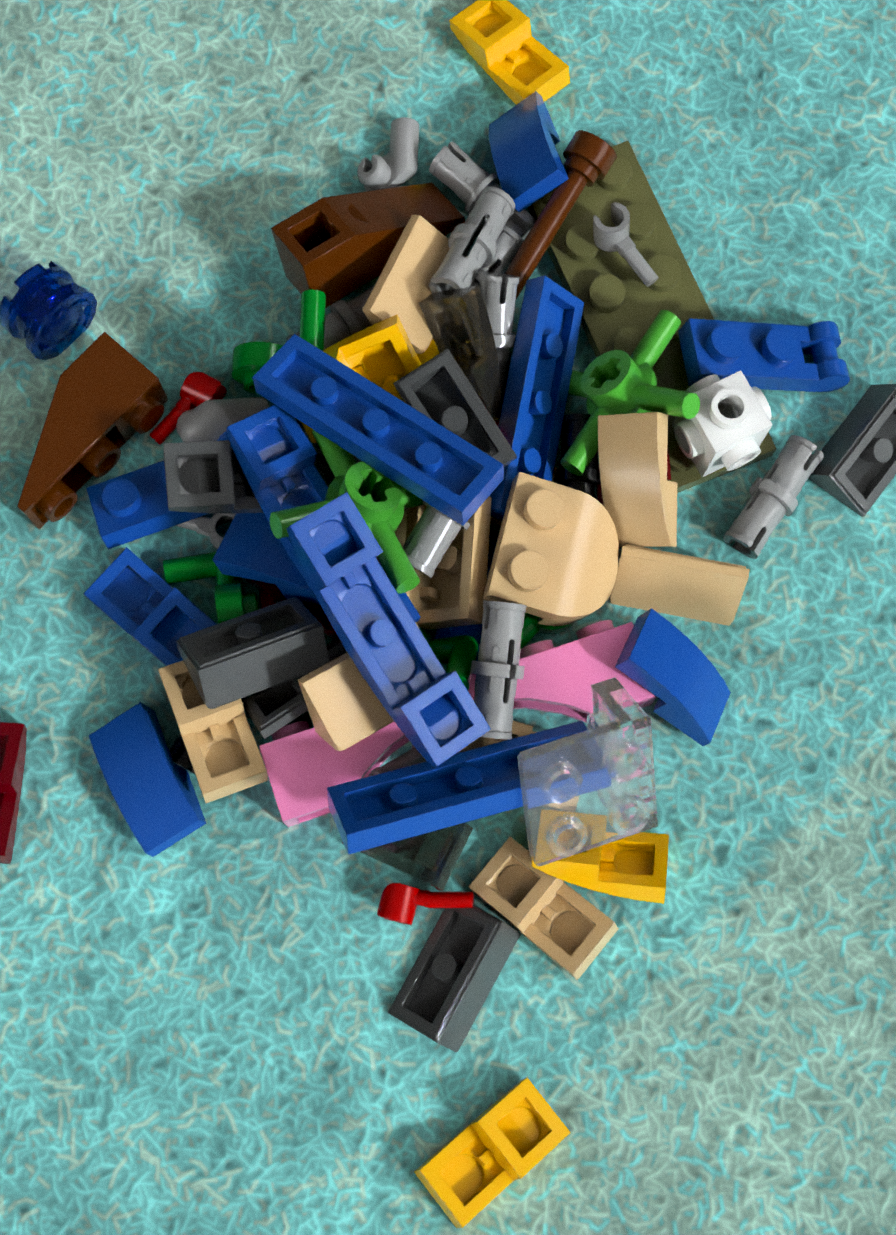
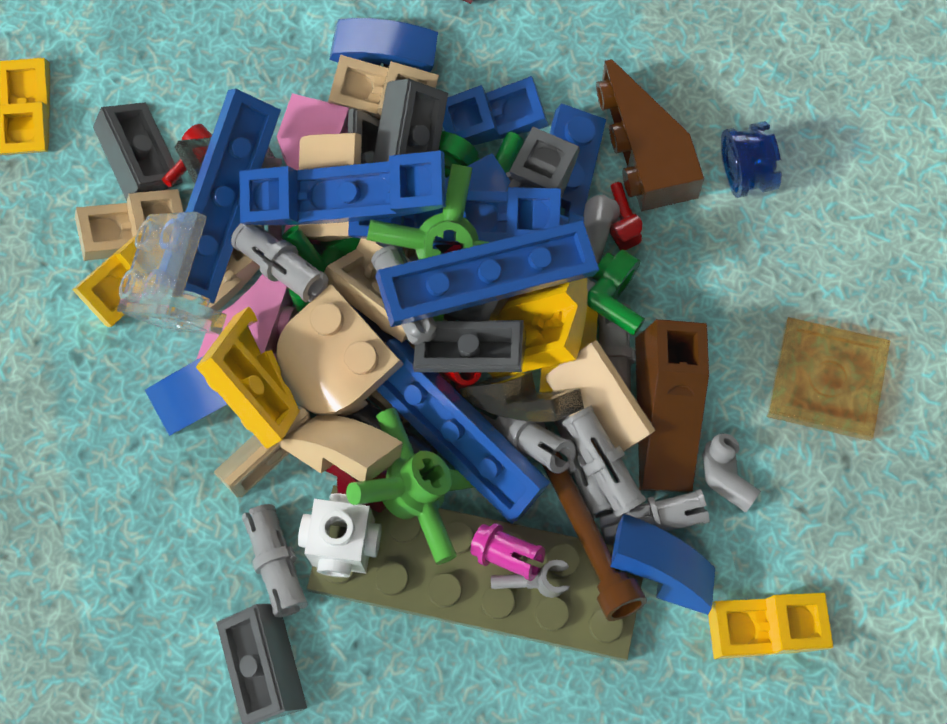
camera: 130 degrees right, 5 degrees down
(236, 130) = (829, 379): none -> clear orange tile
(620, 275) = (504, 550): none -> dark pink pin
(643, 609) = (249, 380): none -> yellow wing
(765, 354) = (379, 624): blue plate -> none

